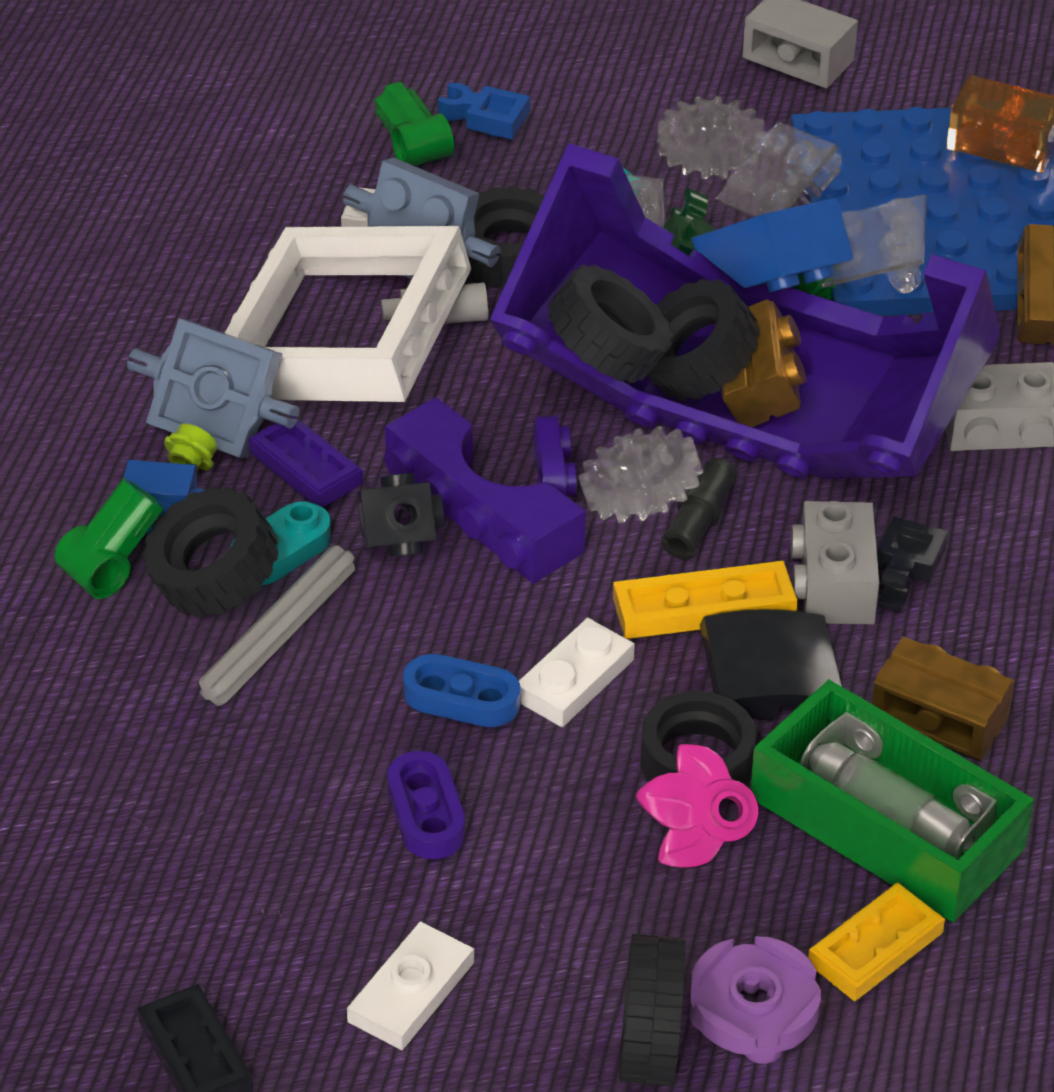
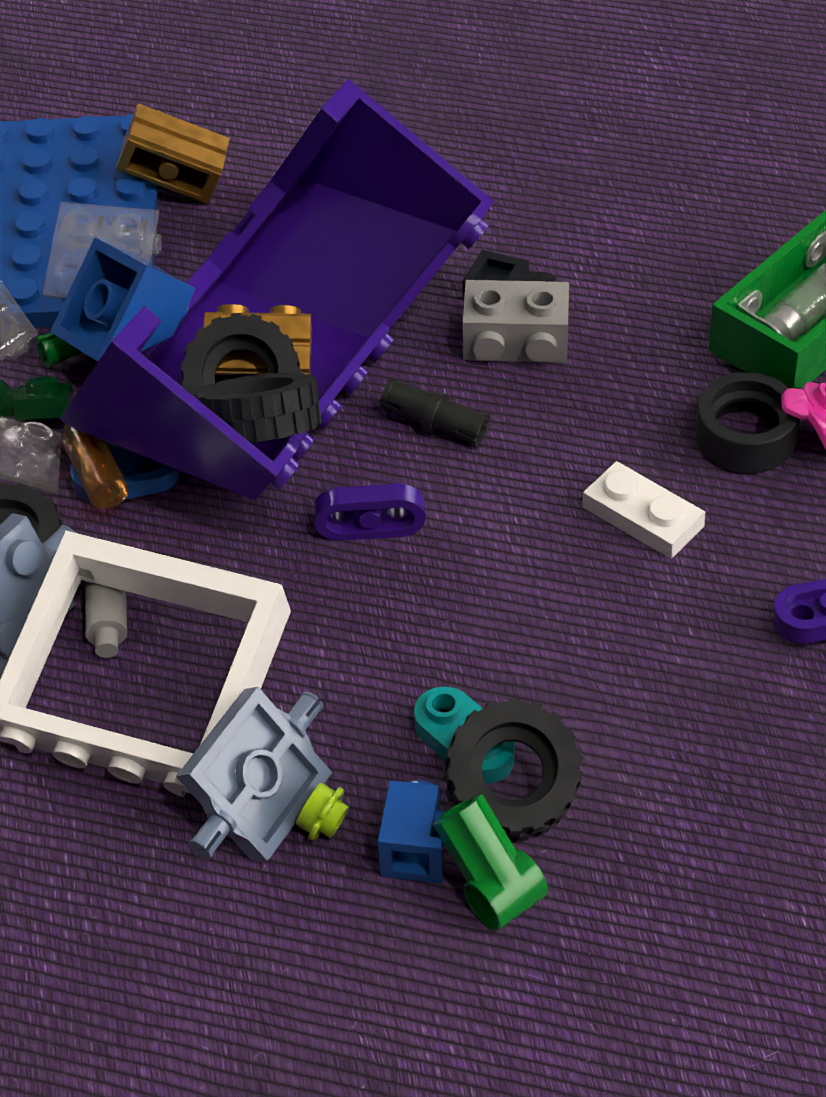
camera: 85 degrees left, 5 degrees up
(276, 625) = (597, 734): light grey axle -> none
(306, 462) = (357, 707): dark purple plate -> none
(378, 520) = (456, 621): black brick -> none
(461, 690) = (677, 593): blue plate -> none
(526, 526) = (357, 598): dark purple arch -> none
(640, 474) = (415, 418): clear gear -> none
(682, 600) = (559, 414): yellow plate -> none
(768, 657) = (636, 374): black slope -> none
(944, 696) = (680, 269): pearl gold brick -> none

